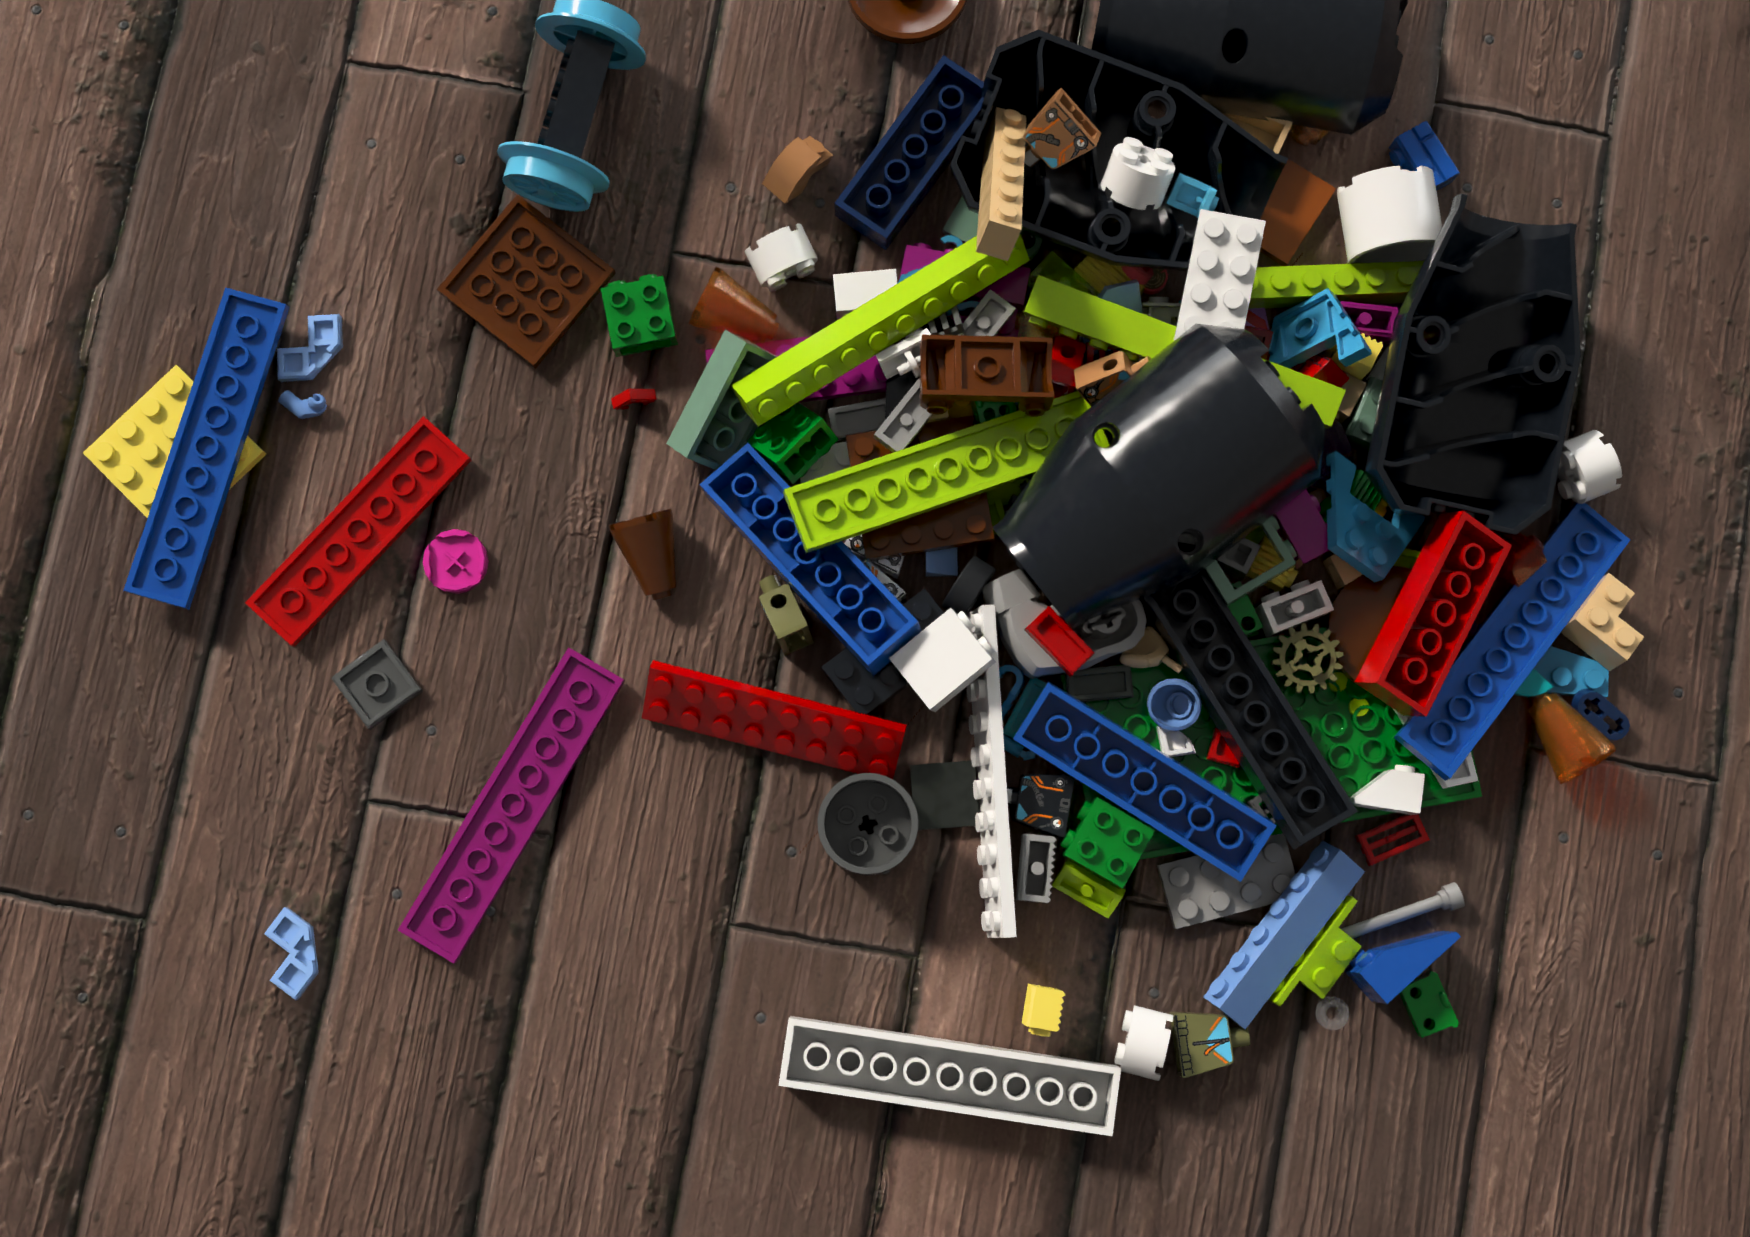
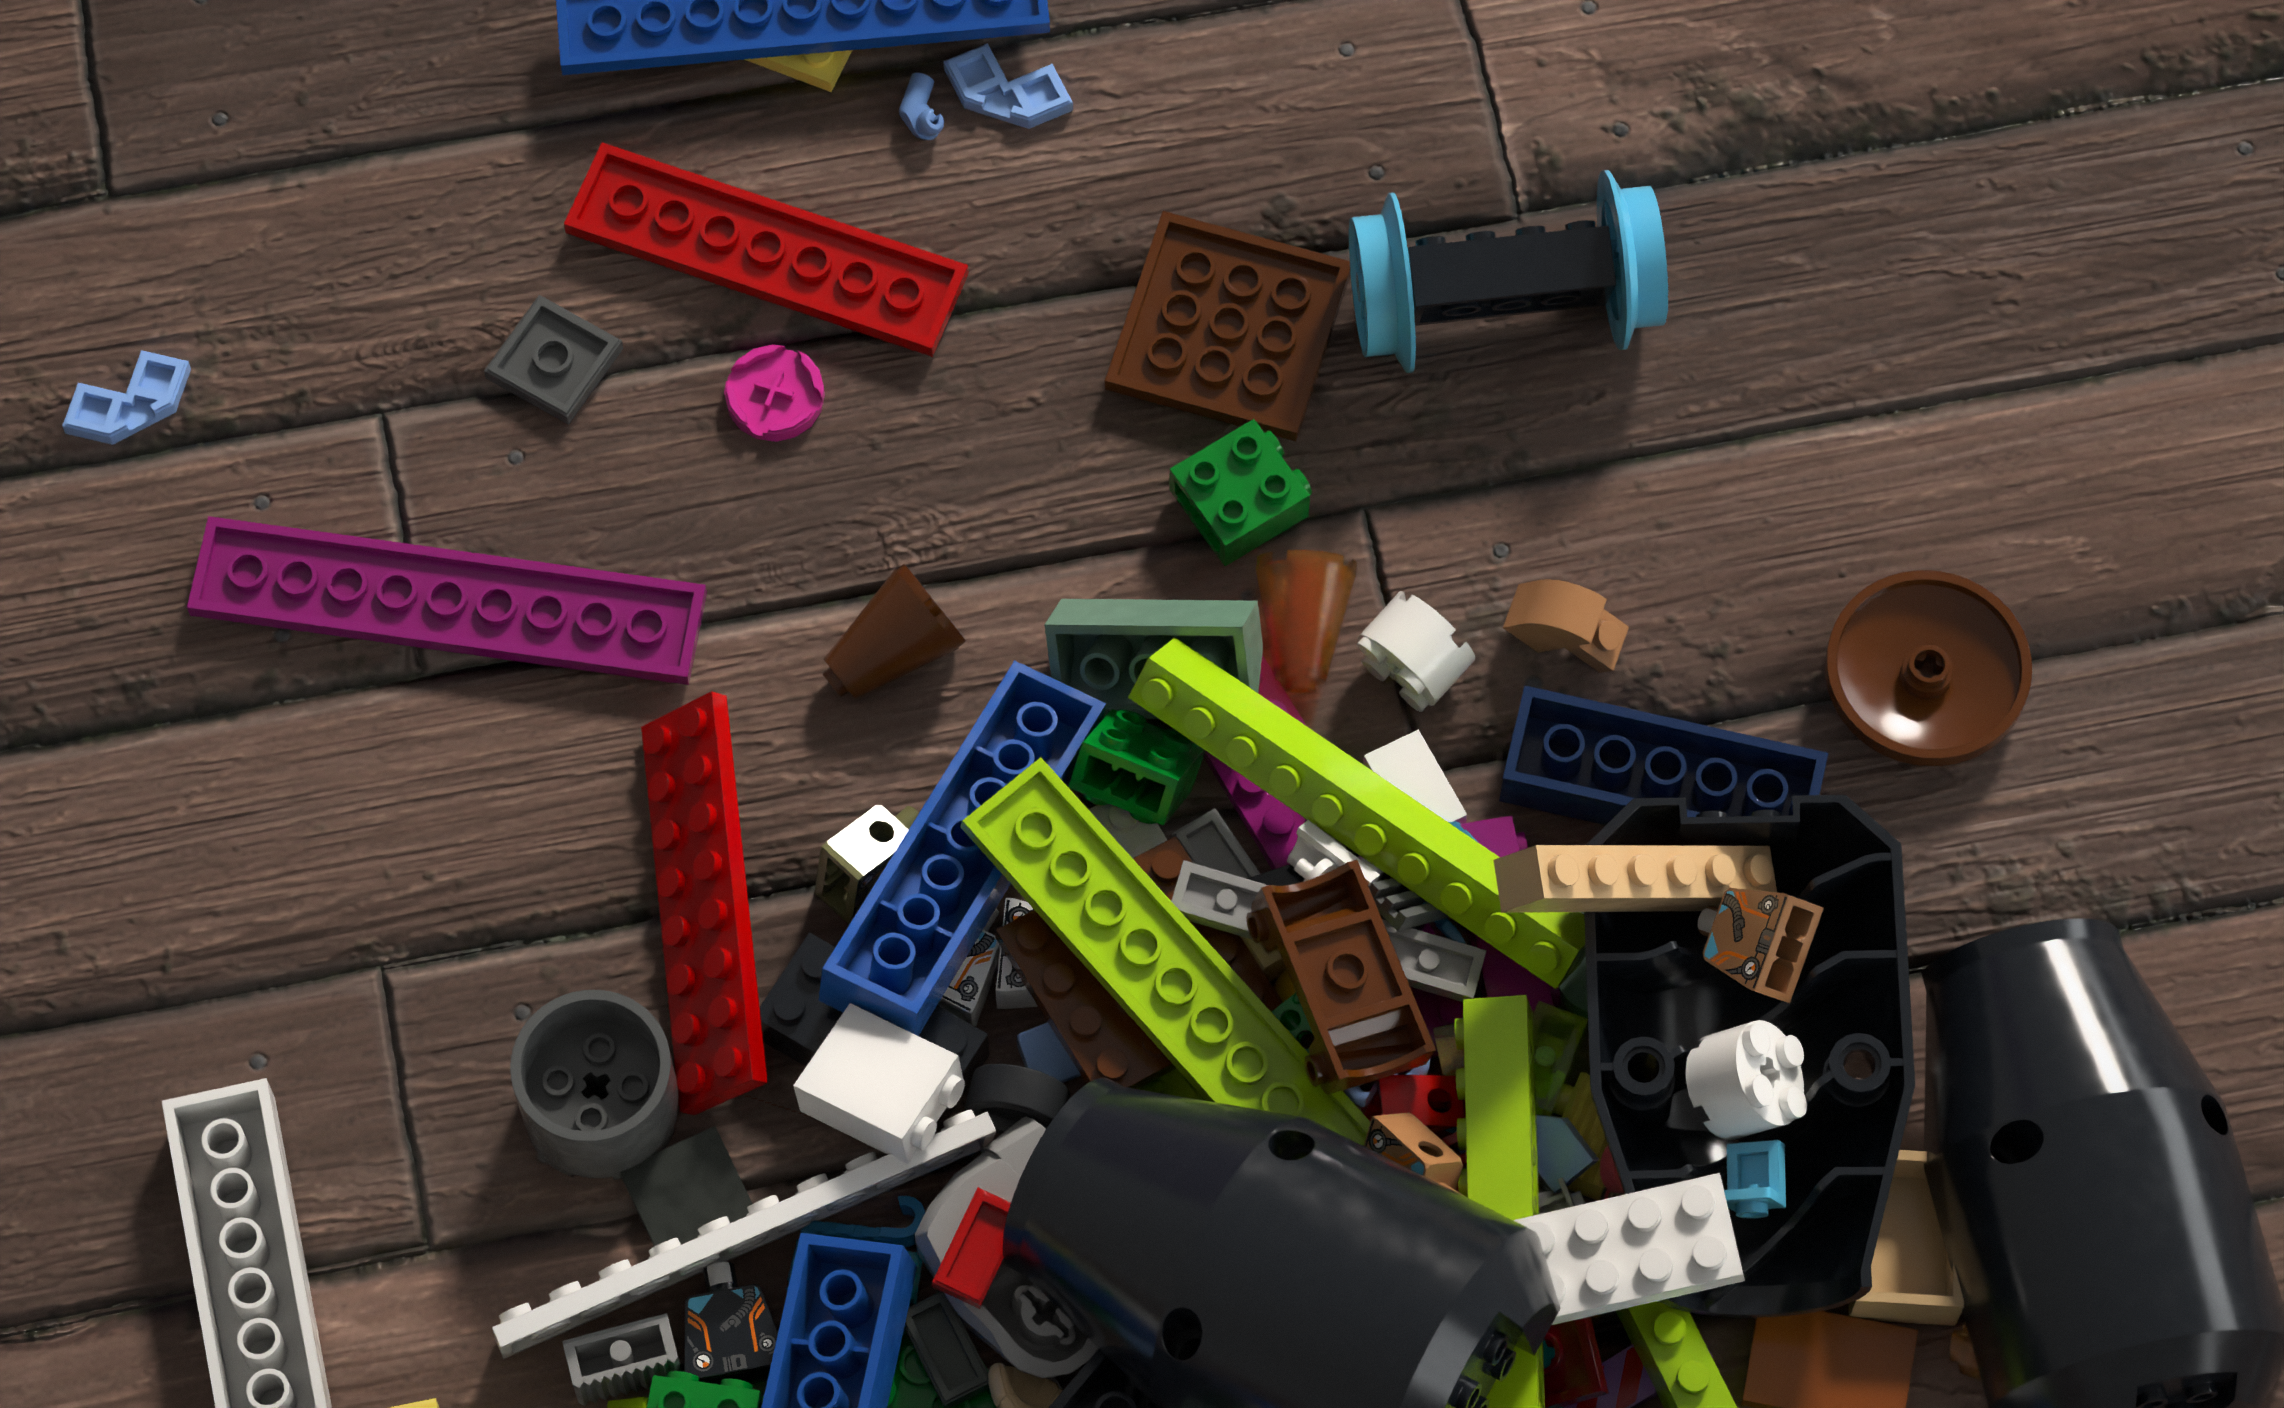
camera: 70 degrees right, 15 degrees down
(633, 395) = (1113, 525): red tile -> none

